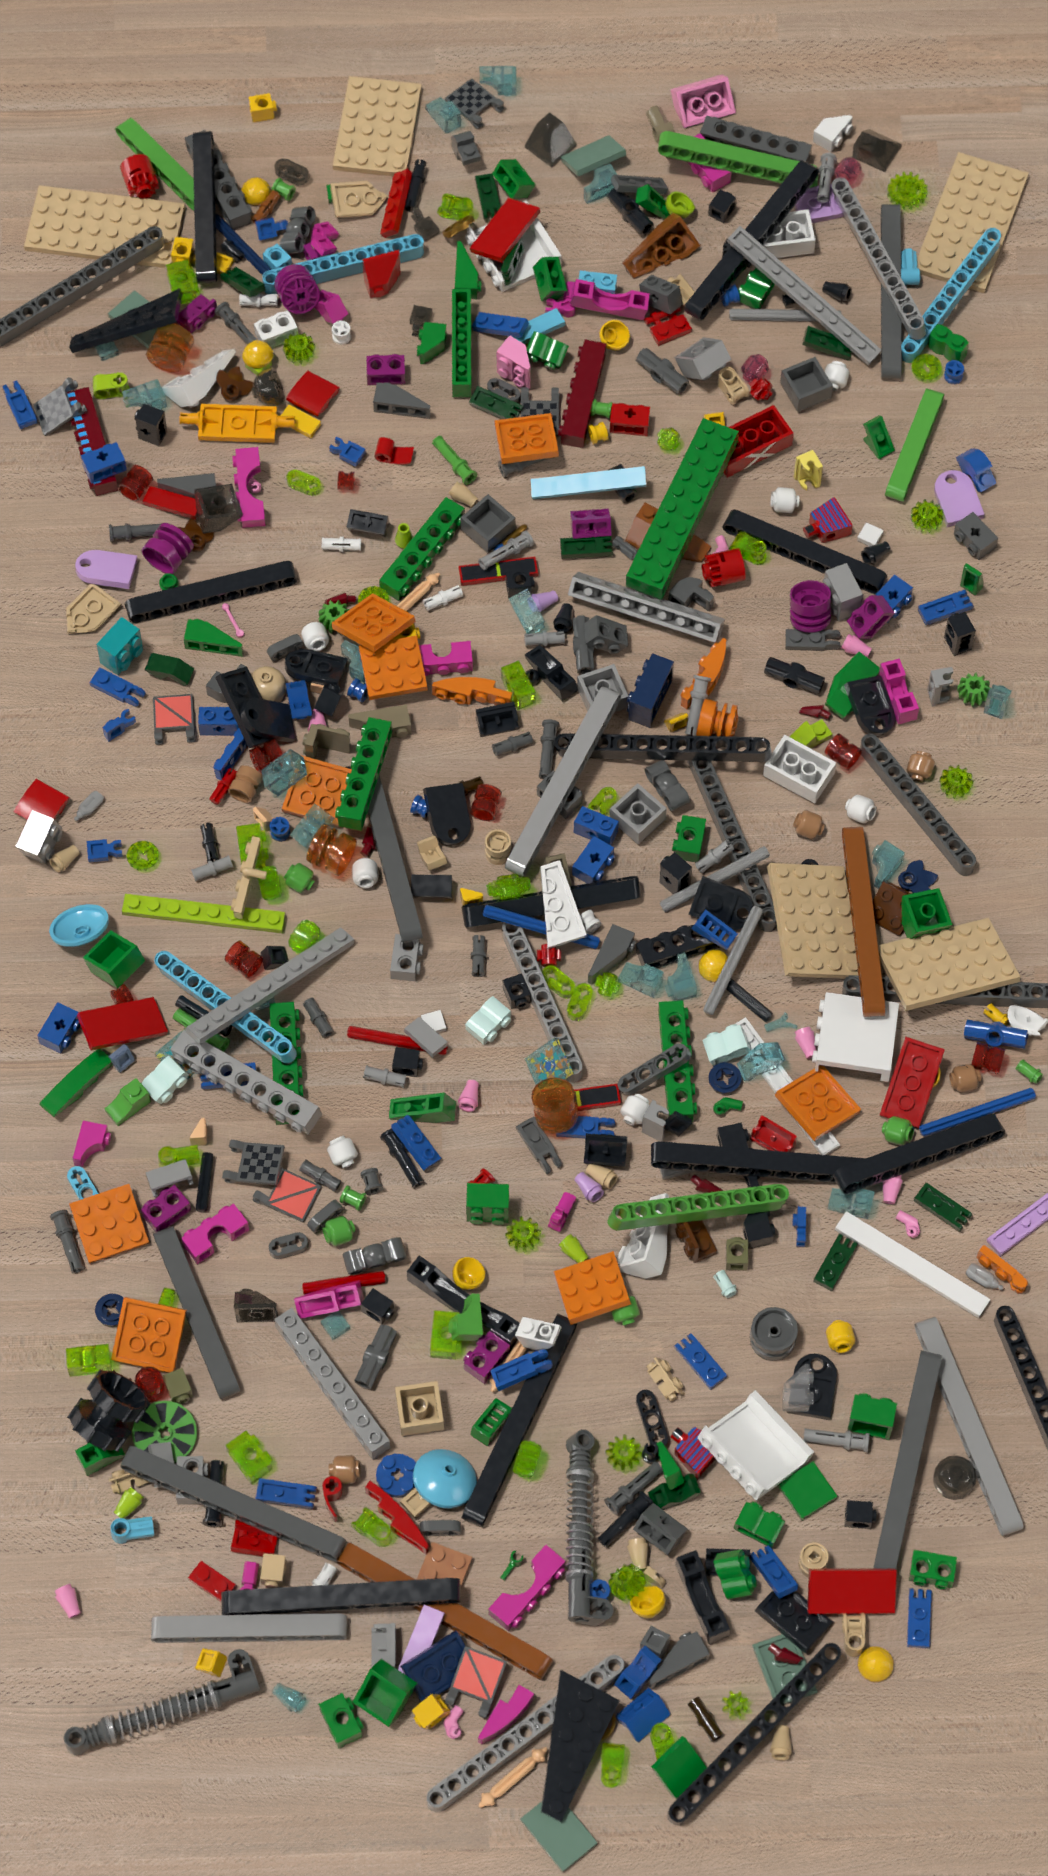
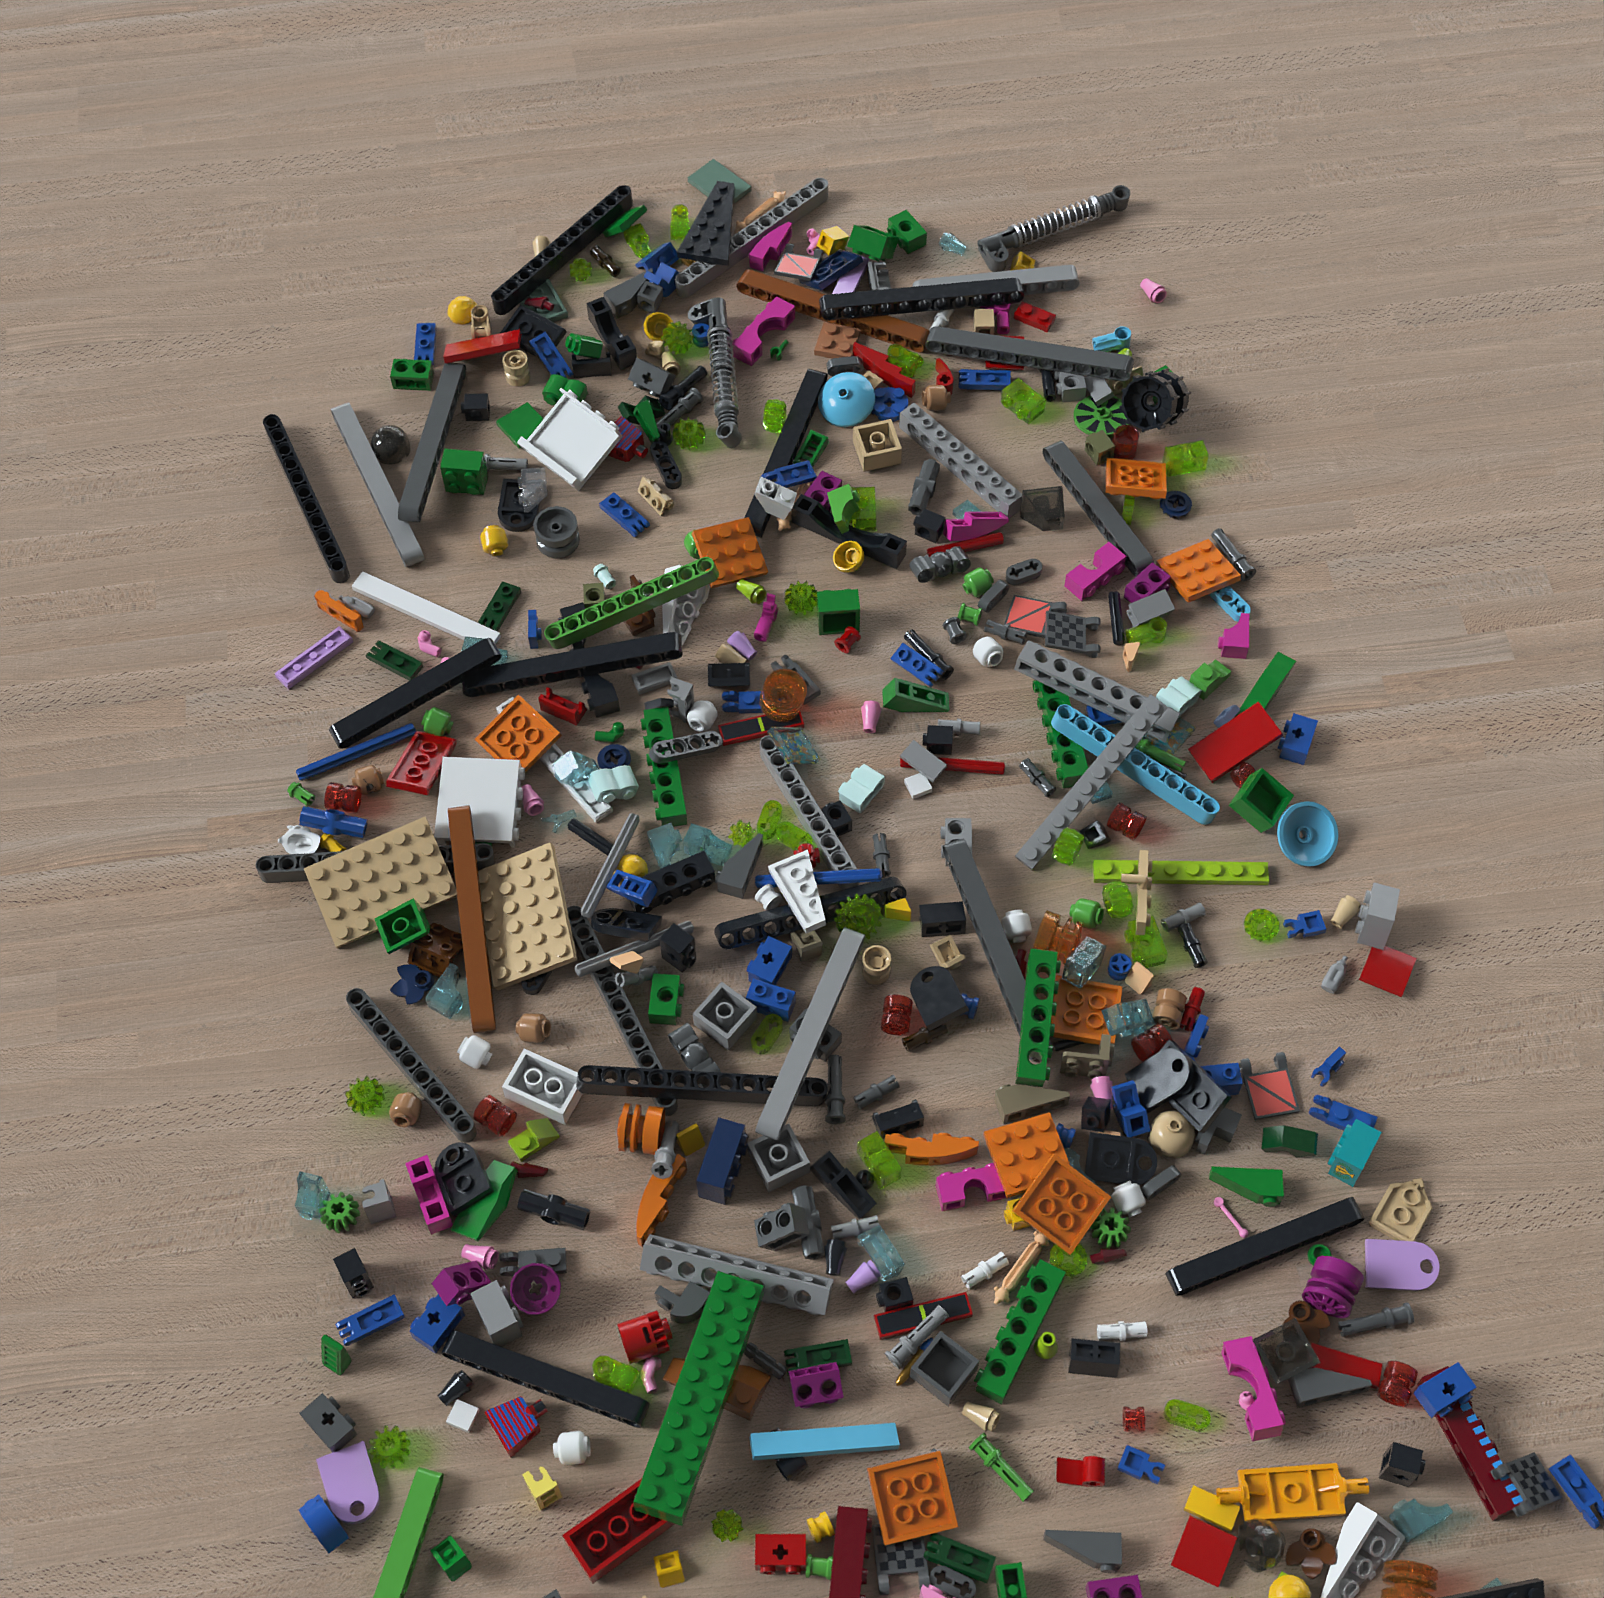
camera: 175 degrees right, 5 degrees down
(108, 385) = (1475, 1531): lime piece -> none
(722, 856) = (628, 961): none -> light nougat slope

